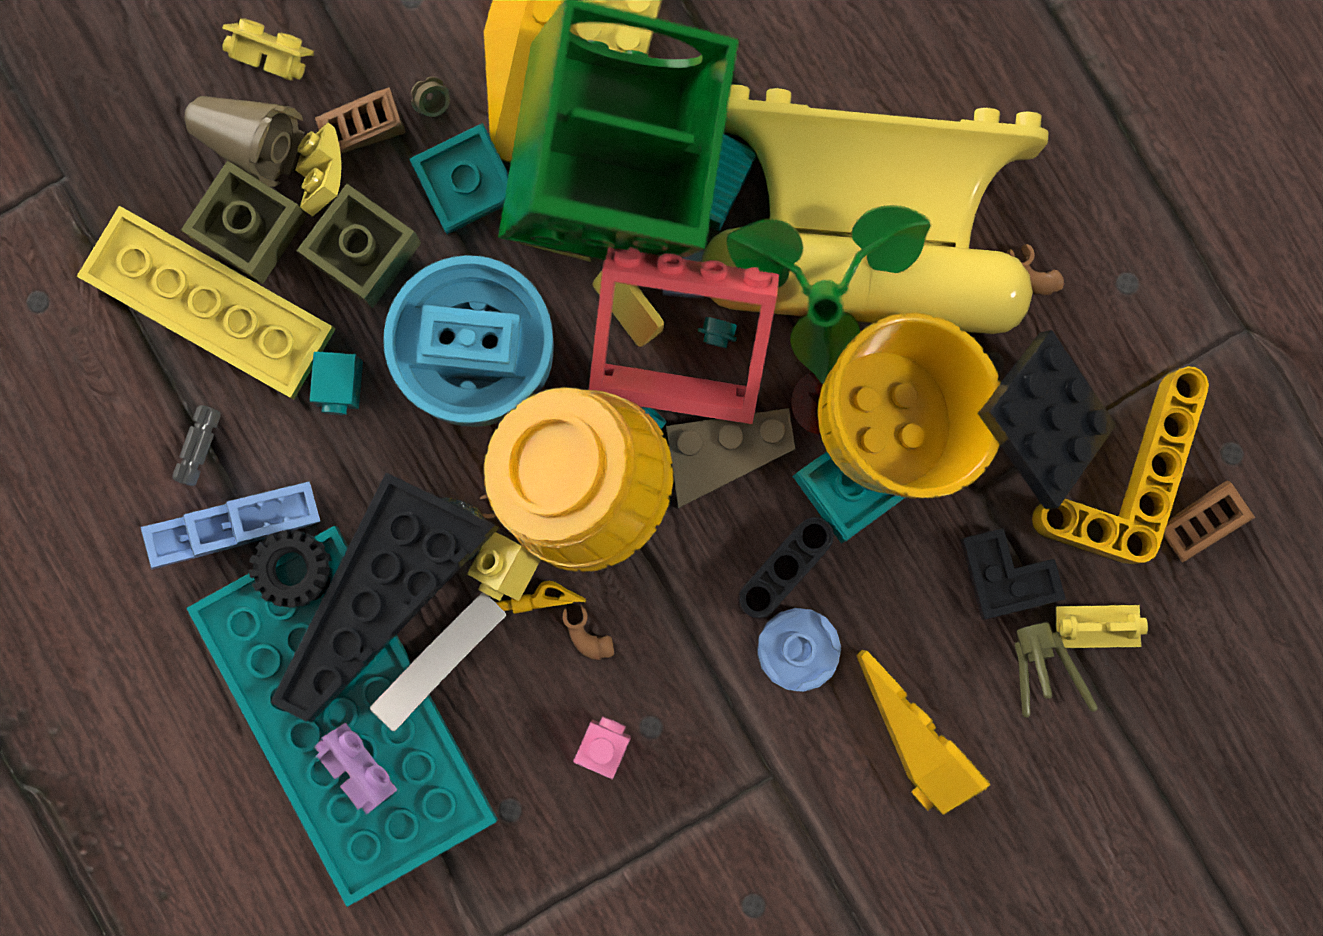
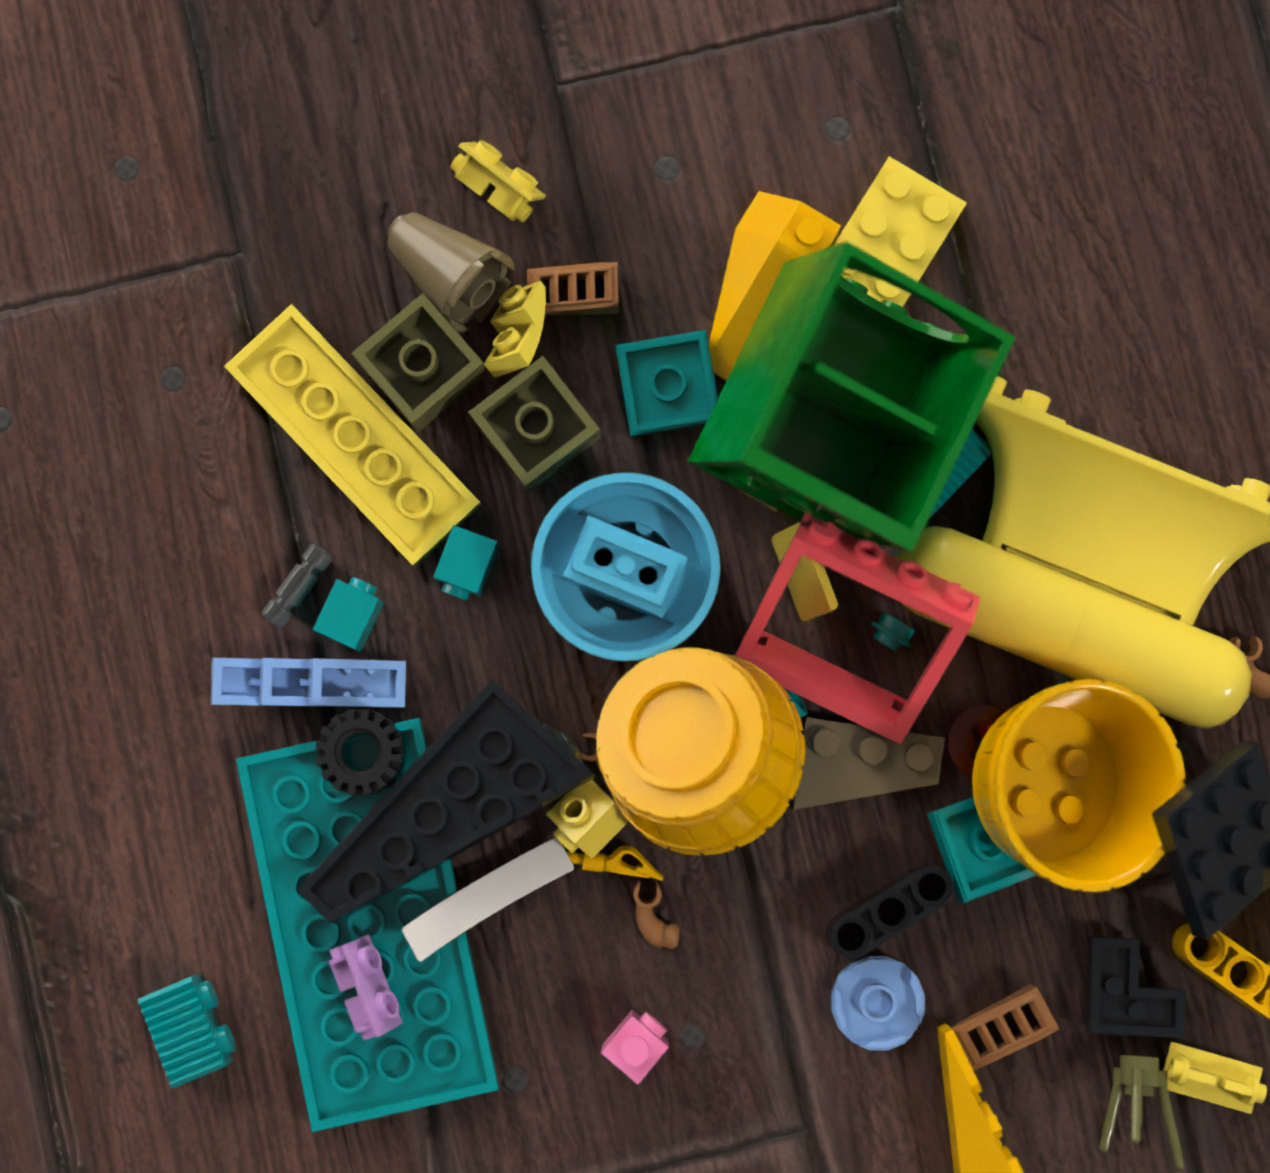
camera: 20 degrees right, 0 degrees up
(213, 852) = (187, 1029): none -> teal brick
(248, 455) = (349, 613): none -> teal brick
(436, 103) = (660, 292): dark tan plate -> none
(888, 238) = (1110, 593): green plant -> none
(946, 624) = (1028, 1035): none -> medium nougat slope

